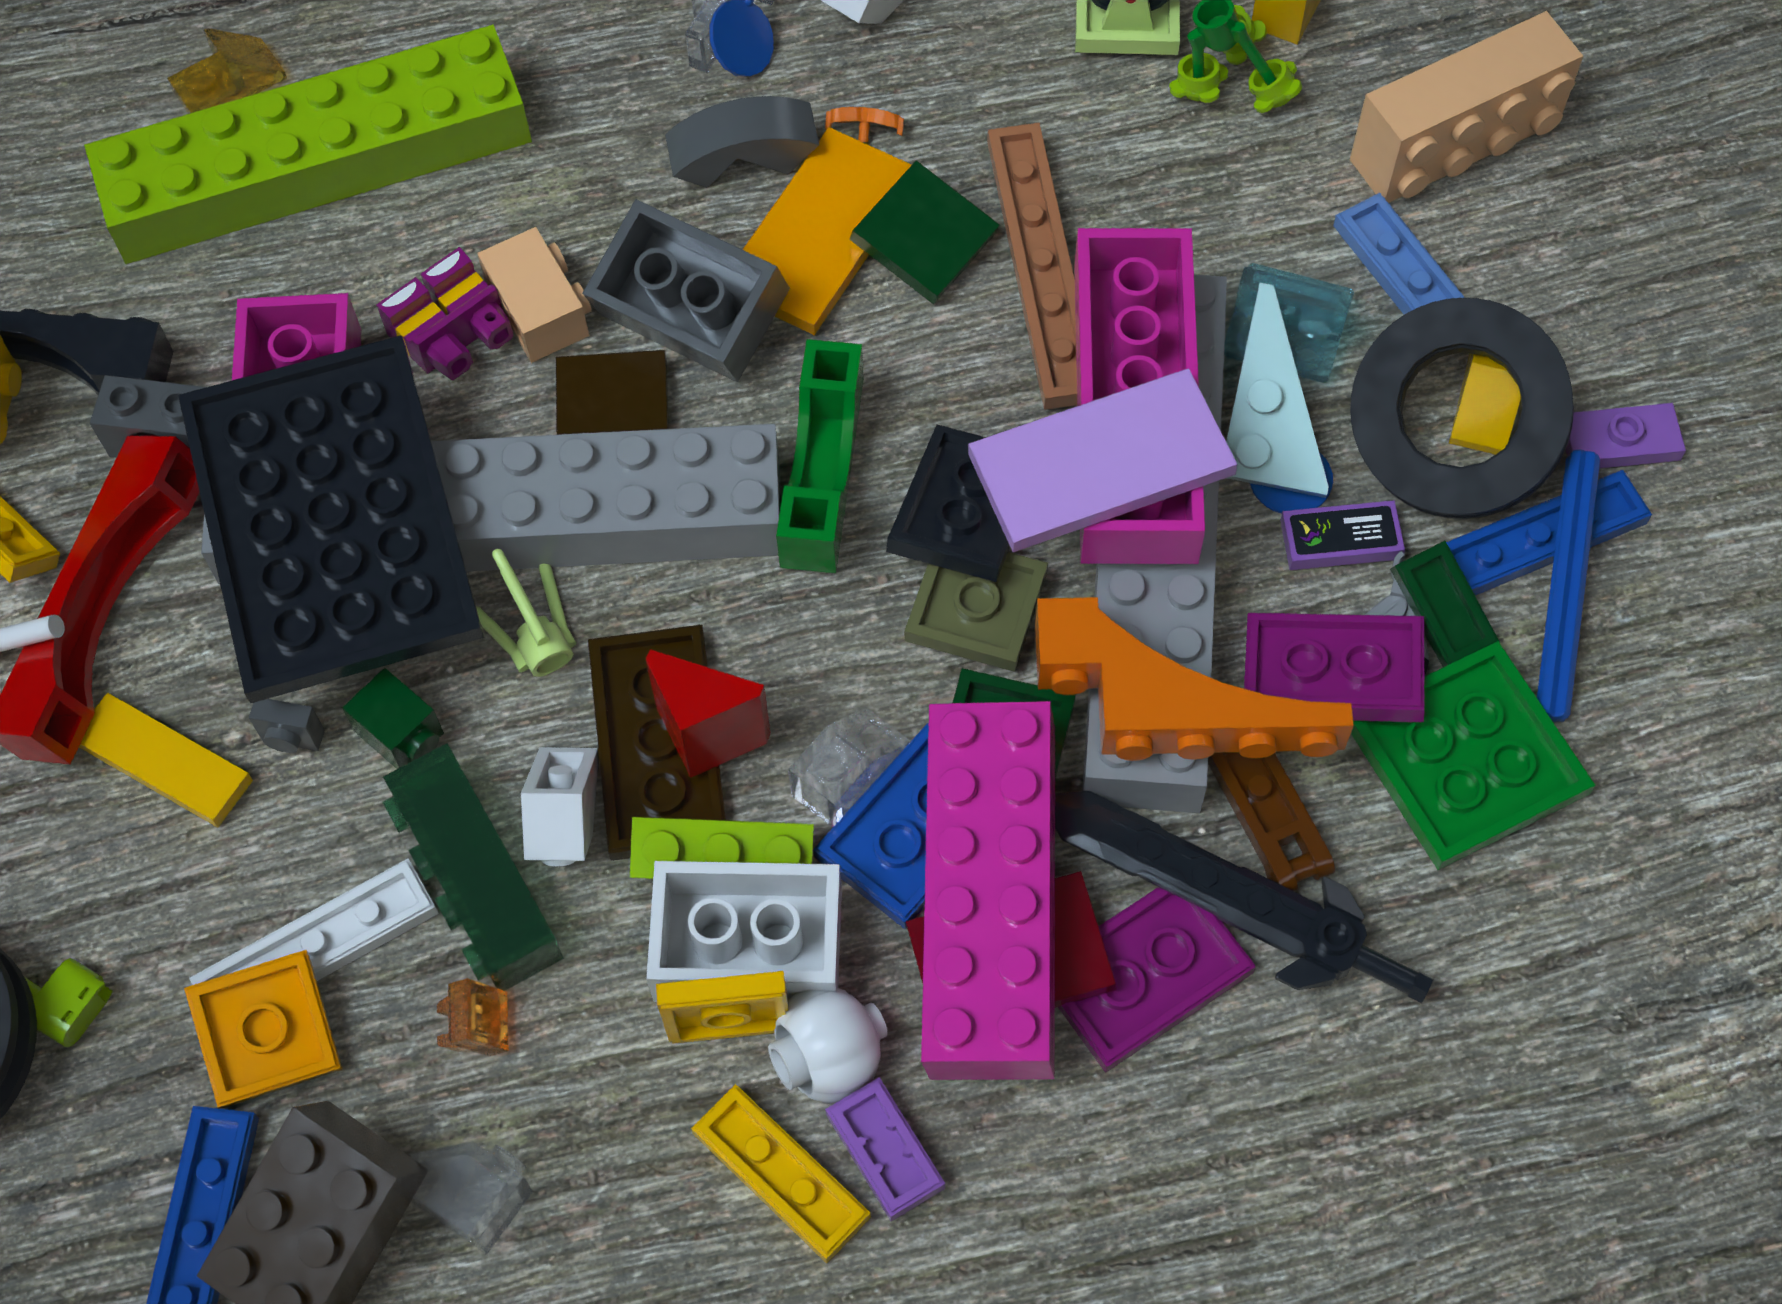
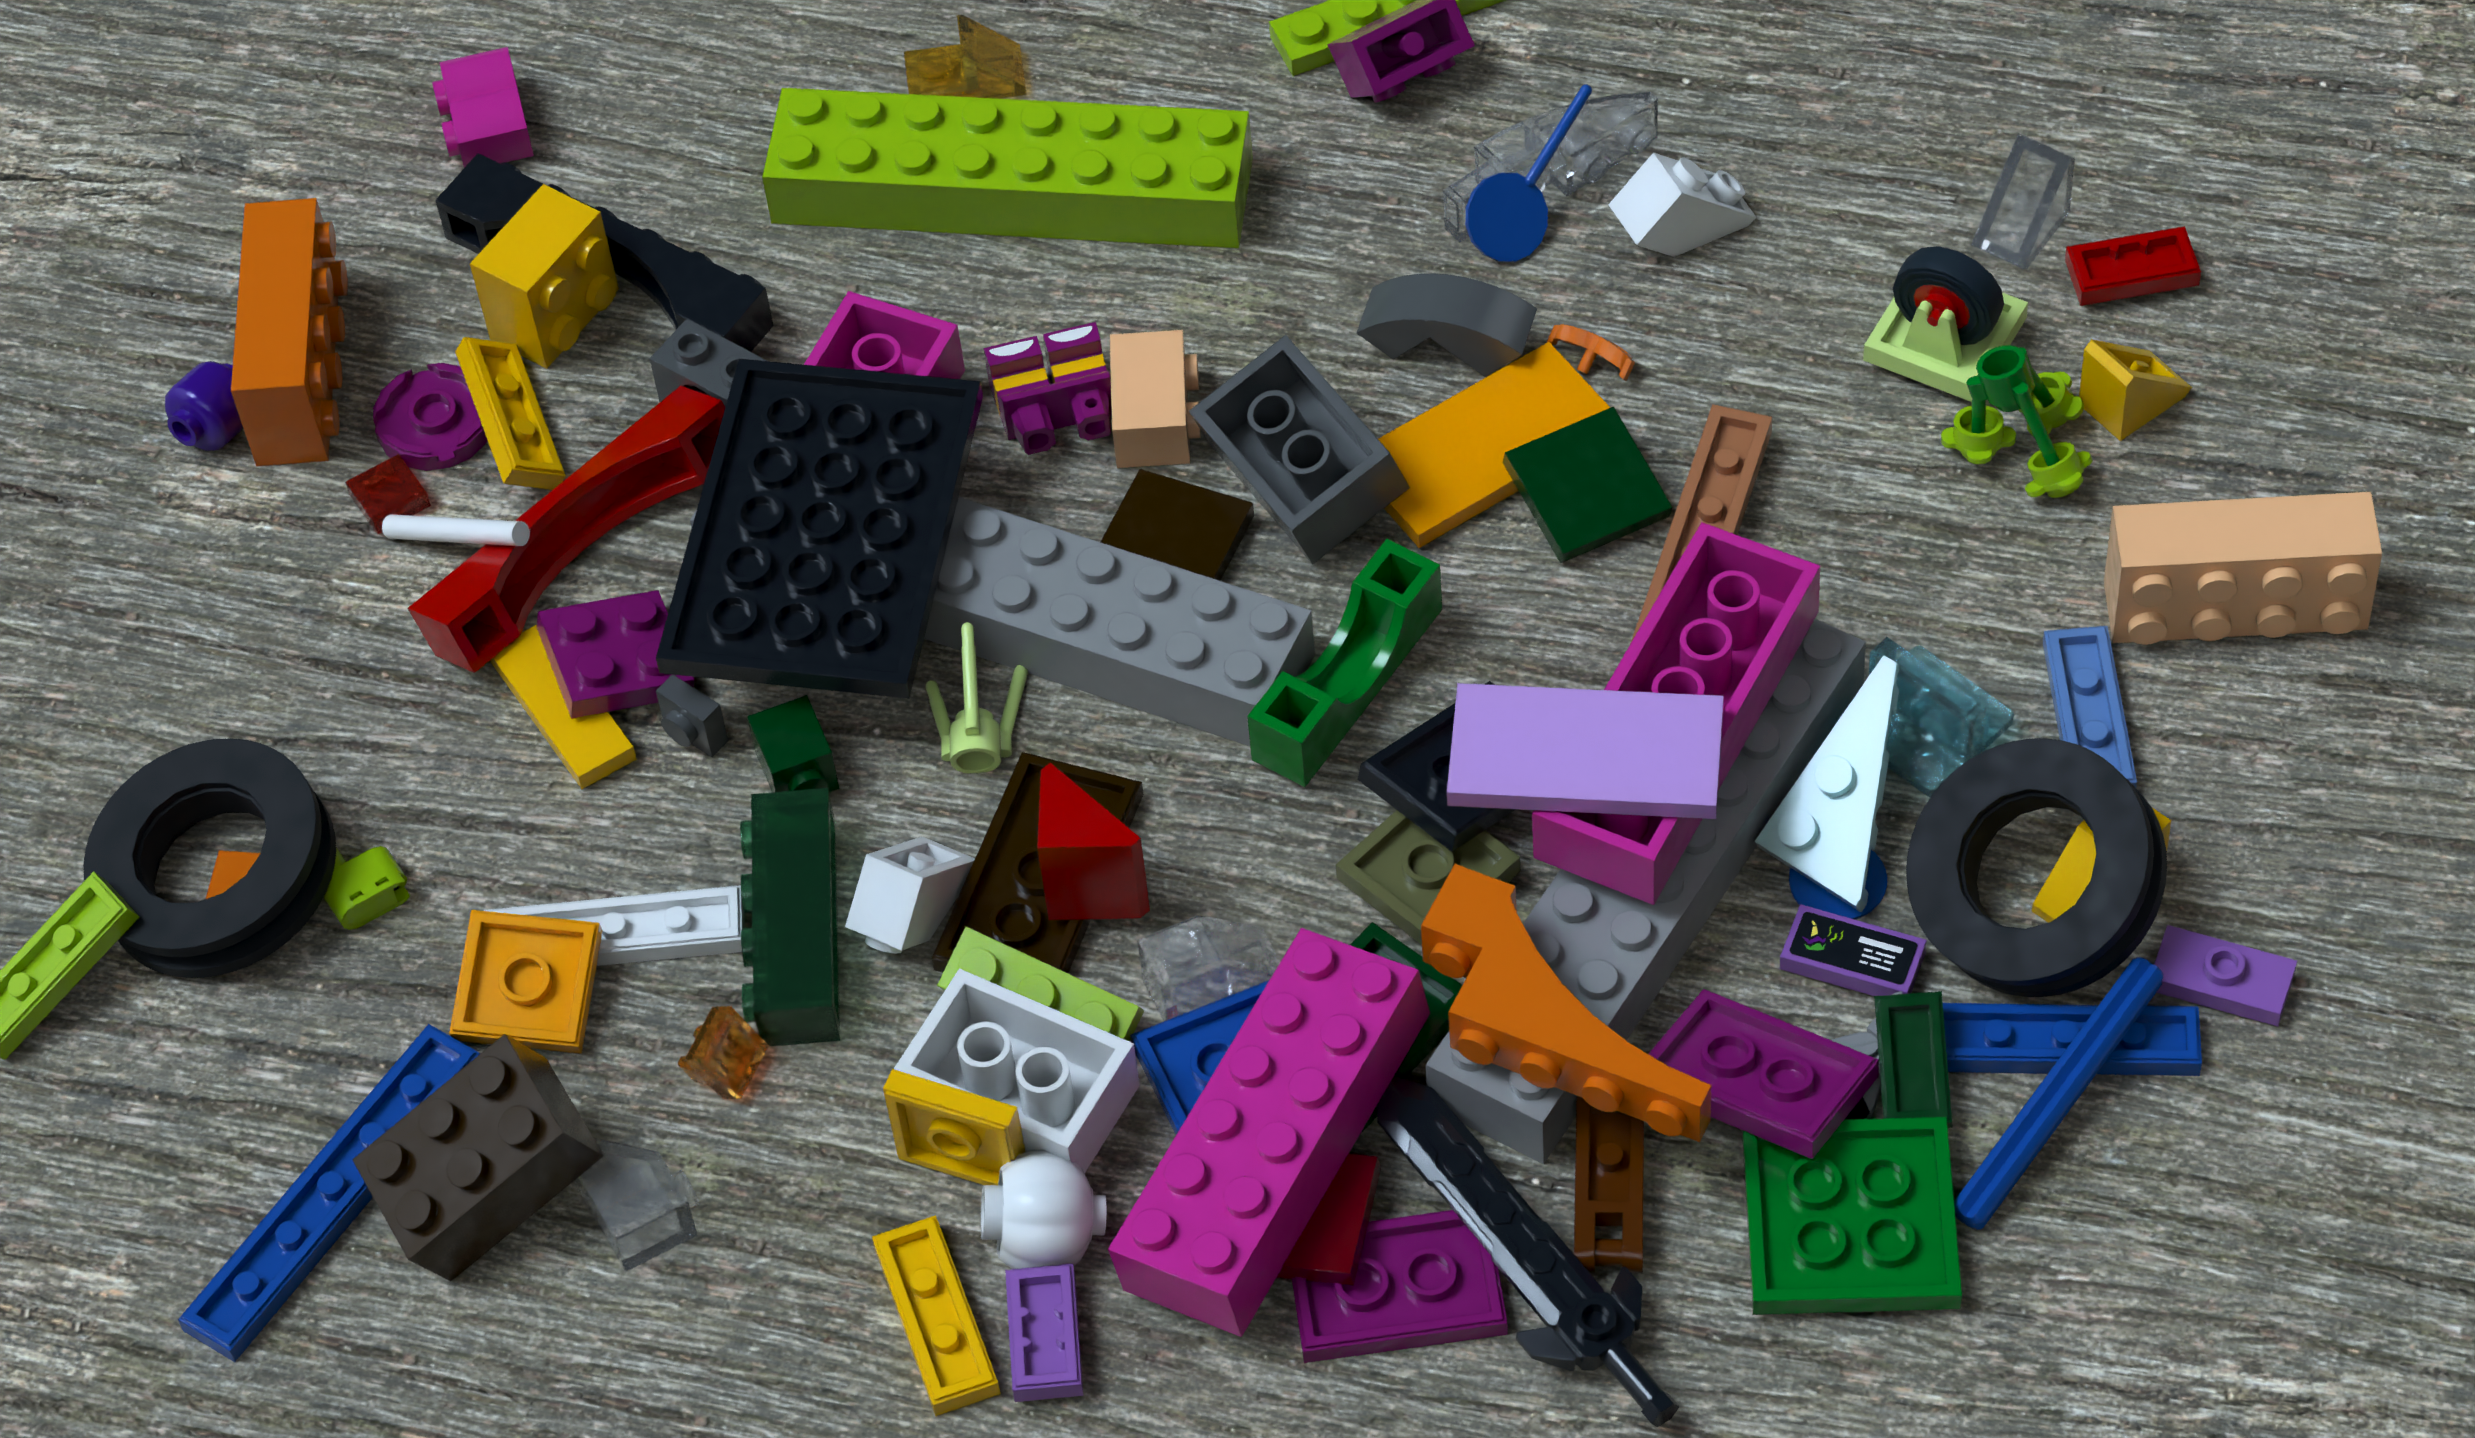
camera: 30 degrees right, 10 degrees down
(183, 696) = (606, 652): none -> magenta plate

